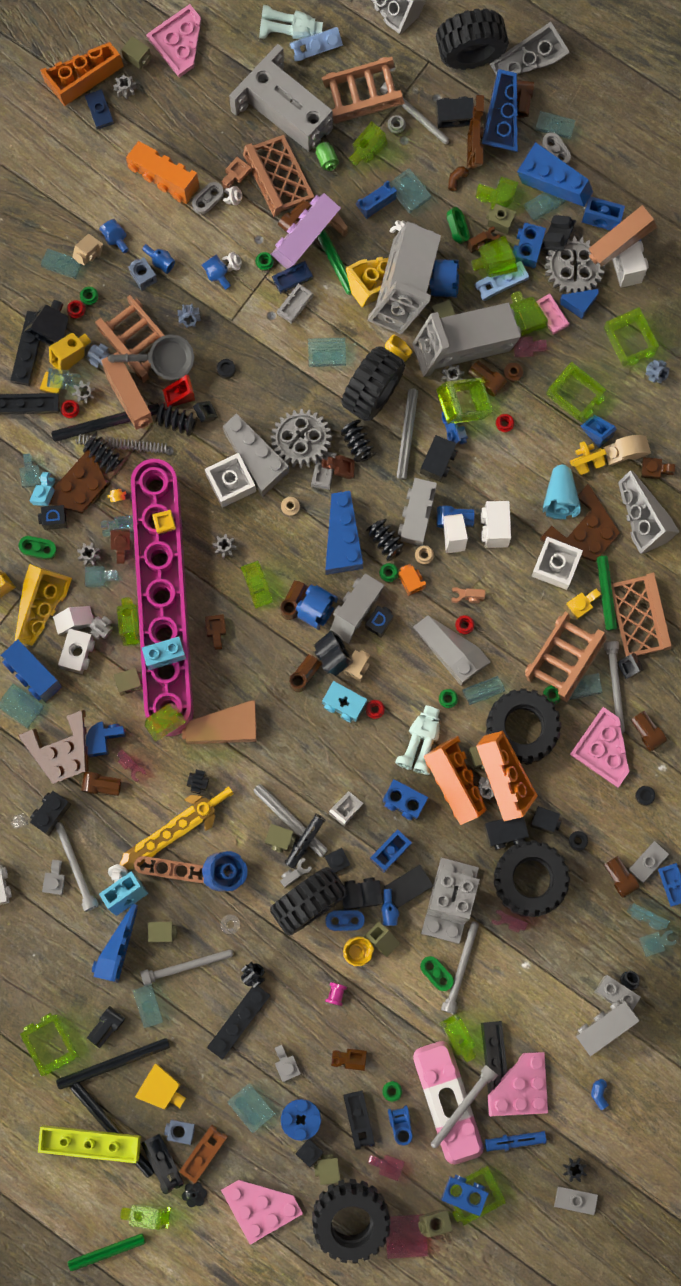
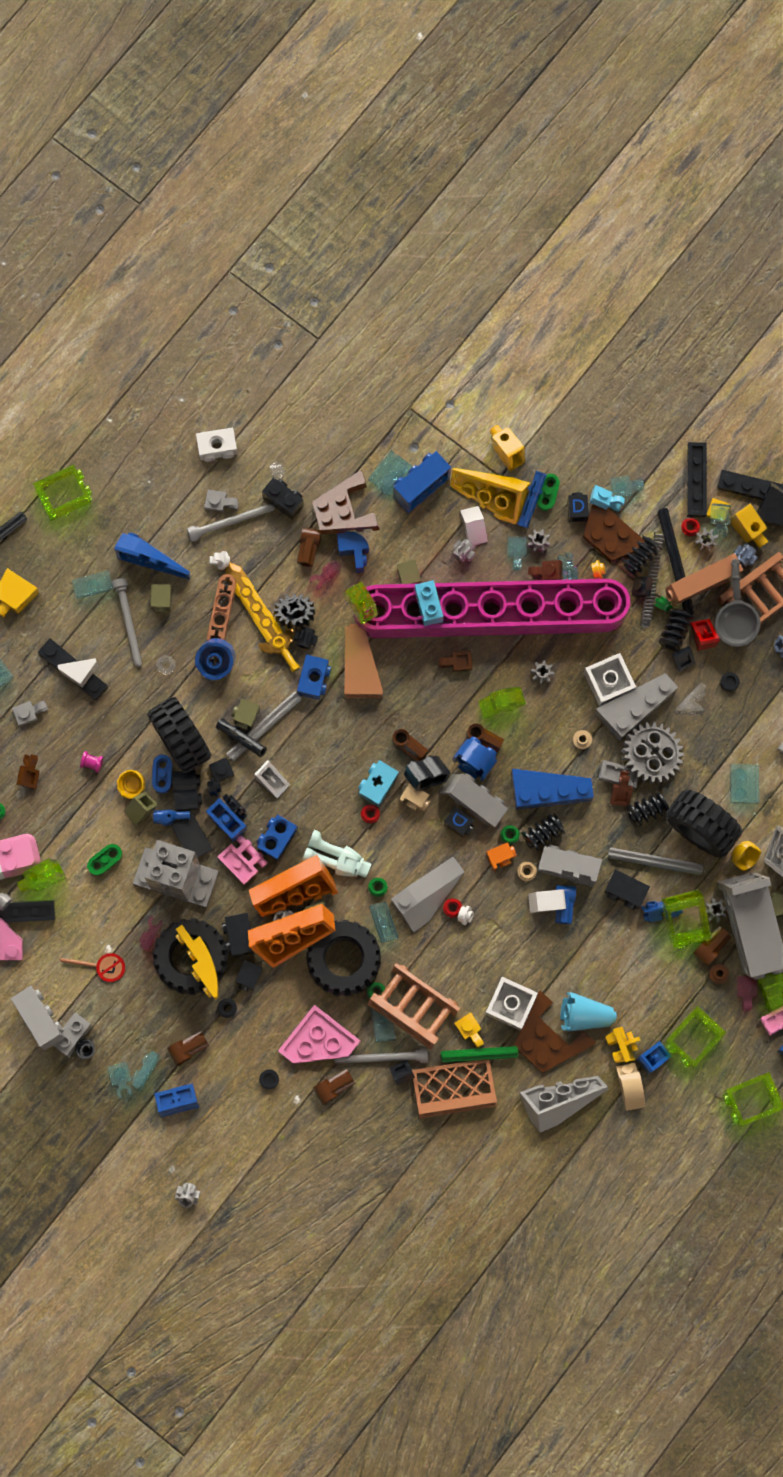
camera: 90 degrees right, 0 degrees up
(38, 558) = (532, 498): none -> blue pin
(74, 640) = (433, 518): white brick -> none
(108, 1023) = (78, 547): black piece -> none
(113, 1063) = (41, 551): black axle -> none
(123, 893) = (200, 564): medium azure brick -> none
(128, 622) = (468, 573): clear neon green torso -> none
(133, 452) = (642, 586): none -> black plate
(149, 432) = (663, 603): none -> green plate
(164, 521) = (563, 609): yellow tile -> none
(176, 799) = (294, 611): none -> black gear
(243, 1012) = (79, 671): none -> white slope
(247, 779) = (311, 666): none -> blue brick
(250, 405) = (689, 705): none -> clear slope
(253, 974) = (115, 683): black gear -> none
(290, 877) = (207, 723): light grey plate -> none
(356, 866) = (214, 787): none -> black plate
(375, 843) = (235, 806): none -> black gear
(433, 838) = (238, 864): none -> bright pink plate
(450, 1004) = (73, 871): light grey piece -> none
(471, 611) = (465, 915): none -> white plate
(472, 595) = (481, 917): nougat plate -> none
(496, 523) = (554, 943): white brick -> none
(504, 417) = (664, 955): red plate -> none
(545, 963) = (109, 966): none -> piece
(547, 859) = (204, 968): none -> yellow slope
(648, 862) = (202, 1077): light grey plate -> none
(654, 468) = (611, 1113): reddish brown plate -> none
(657, 371) = (715, 1124): sand blue gear -> none

